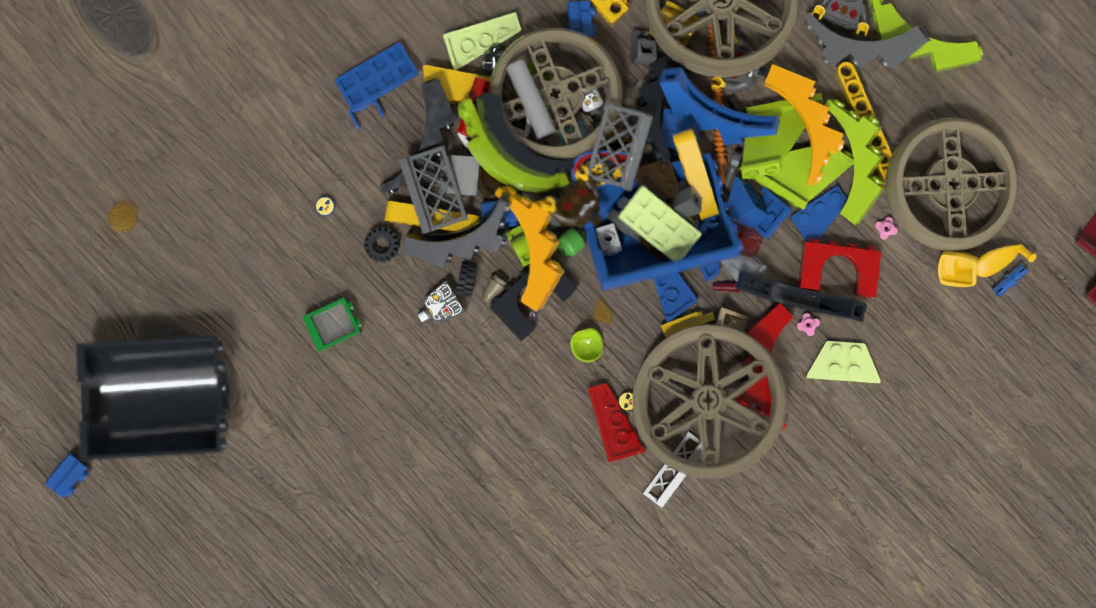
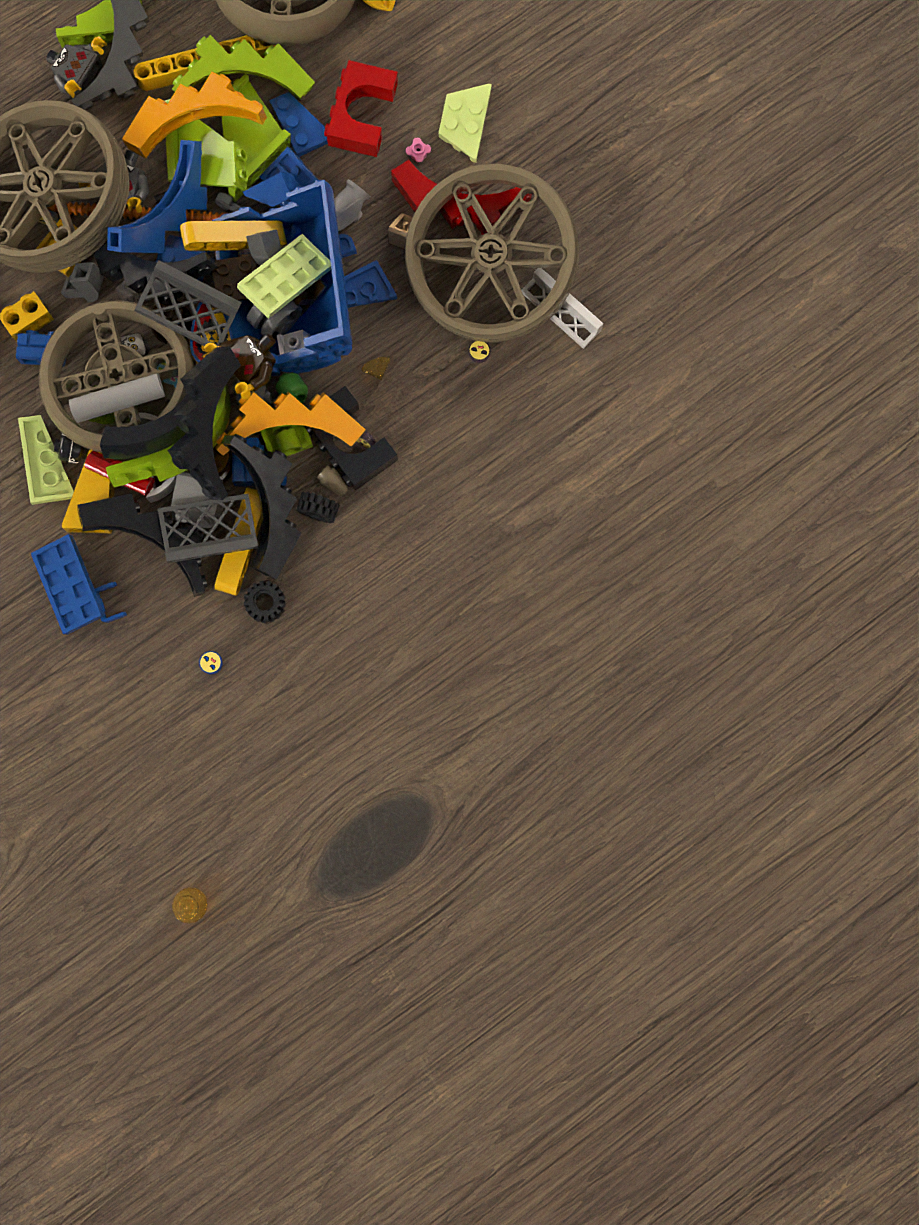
camera: 85 degrees left, 5 degrees down
(67, 476) = (491, 1006): blue brick -> none
(152, 398) = (411, 889): black cylinder -> none
(333, 323) = (350, 668): window -> none
(441, 305) = (344, 541): torso -> none
(517, 169) = (196, 419): none -> black arch
(587, 345) = (411, 385): lime helmet -> none
(615, 431) = (512, 367): red wing -> none
(691, 320) = (400, 278): yellow hinge -> none
(730, 287) = (366, 223): dark red animal -> none
(800, 298) = (392, 145): black arch -> none
(881, 228) = (323, 63): bright pink plate -> none

